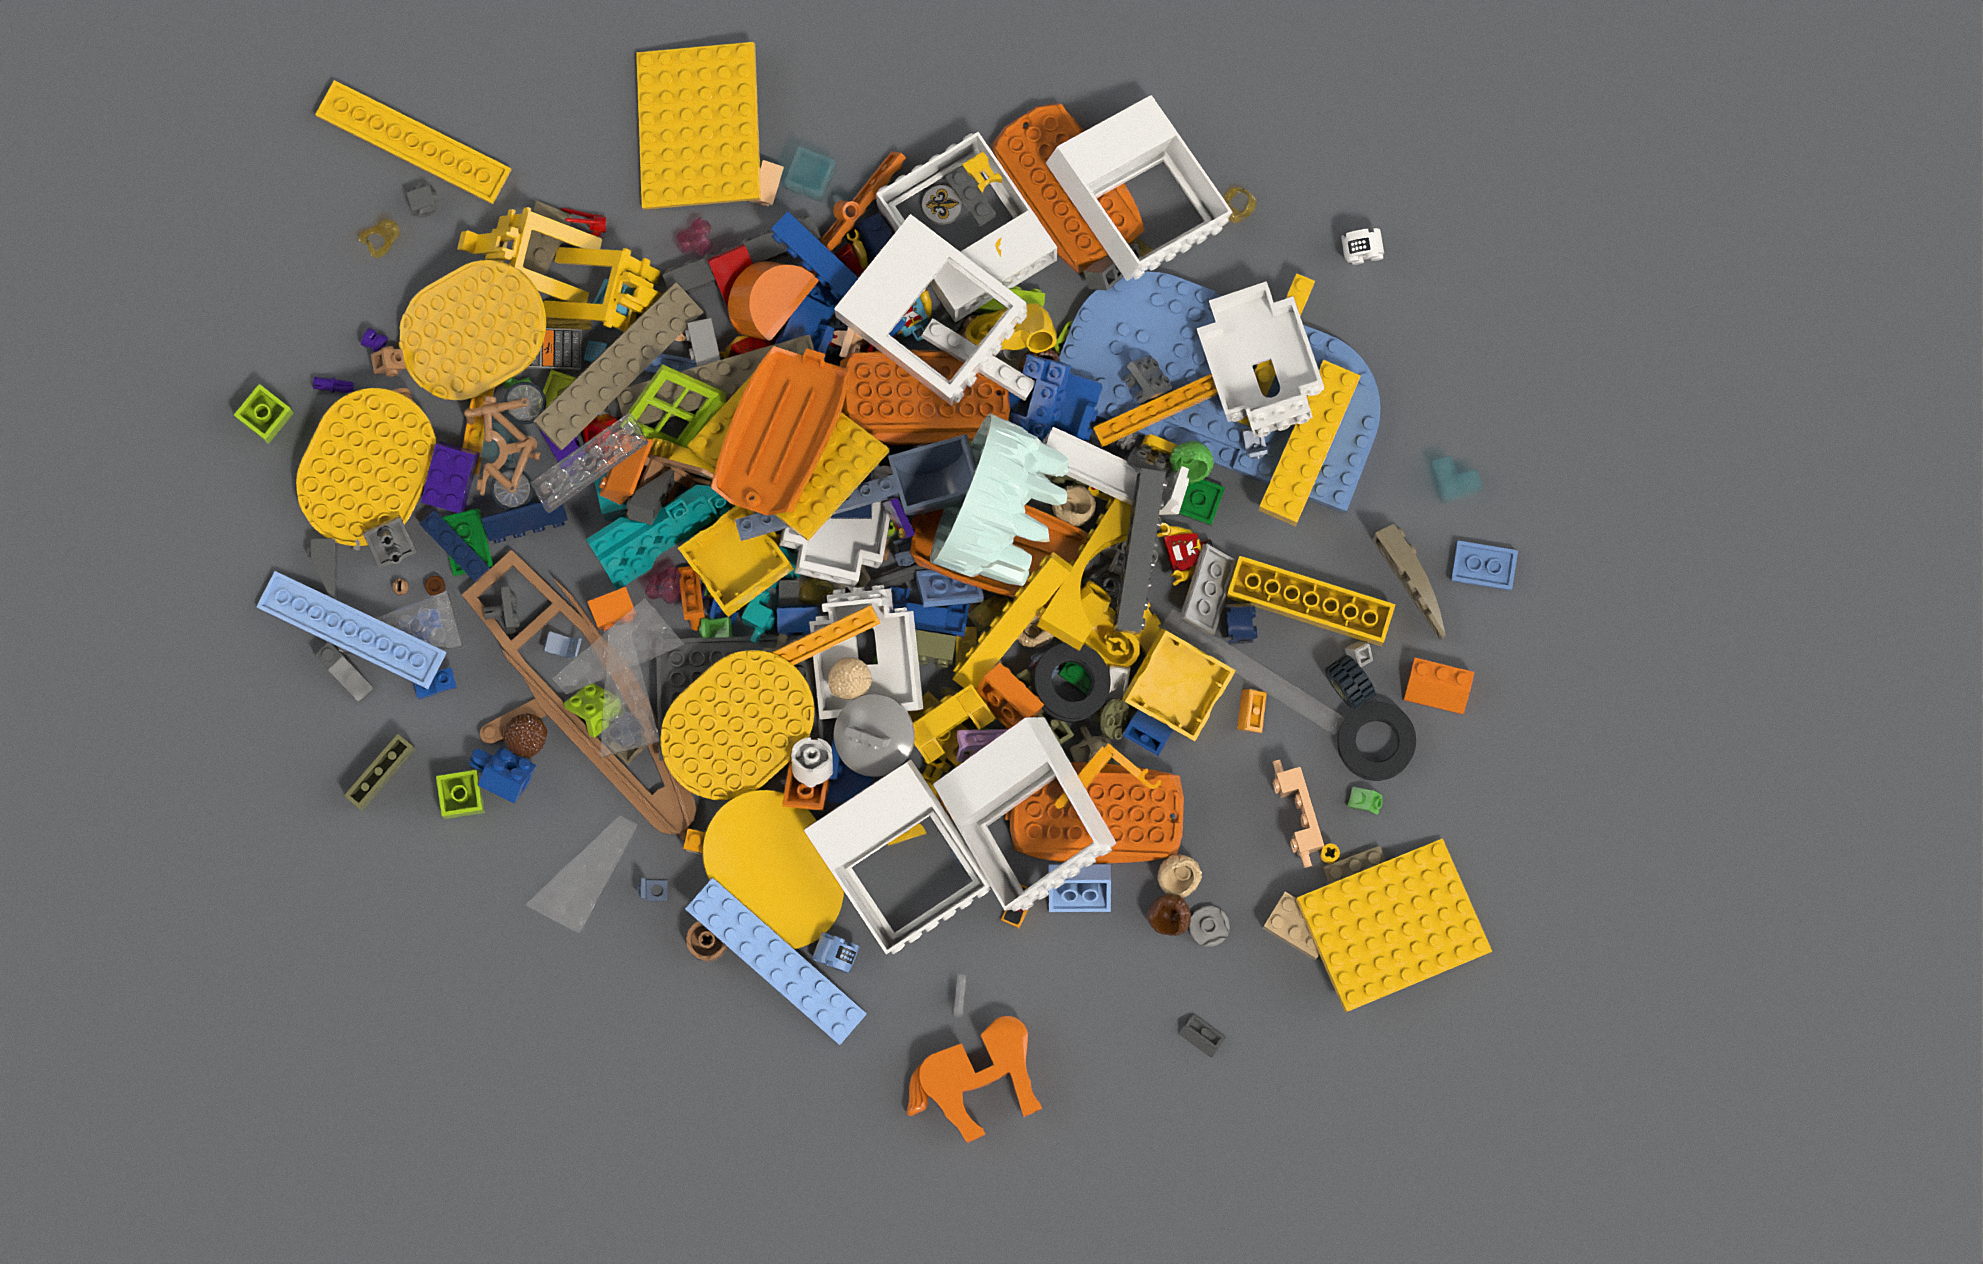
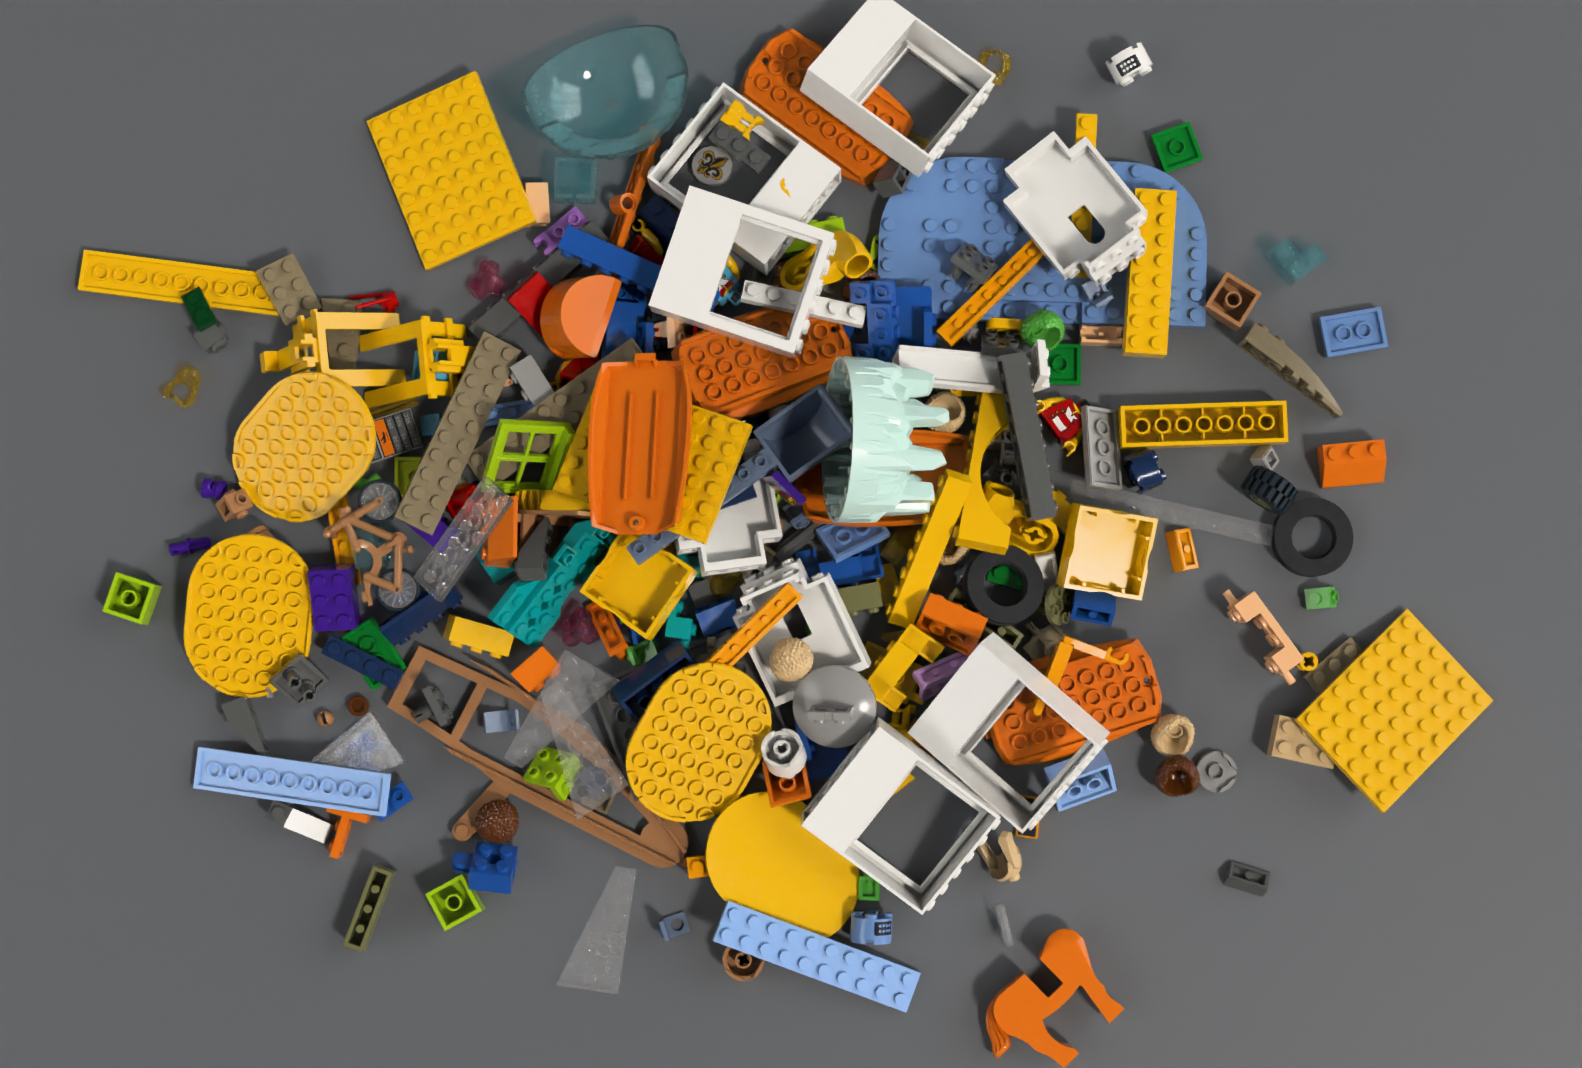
camera: 15 degrees left, 5 degrees up
(381, 690) = (343, 828): none -> orange bracket
(421, 171) = (199, 309): none -> dark green plate
(509, 181) = (288, 289): none -> dark tan plate
(569, 560) = (478, 636): none -> yellow wedge
(700, 655) = (639, 687): none -> dark blue slope
(772, 216) = (553, 235): none -> medium lavender plate
(846, 917) = (868, 888): none -> bright green bracket
(869, 105) = (609, 92): none -> clear light blue windscreen
(983, 941) = (997, 865): none -> tan piece
(1246, 486) = (1100, 335): none -> light nougat hinge
(1379, 496) = (1231, 301): none -> medium nougat brick
(1381, 338) = (1176, 147): none -> green plate

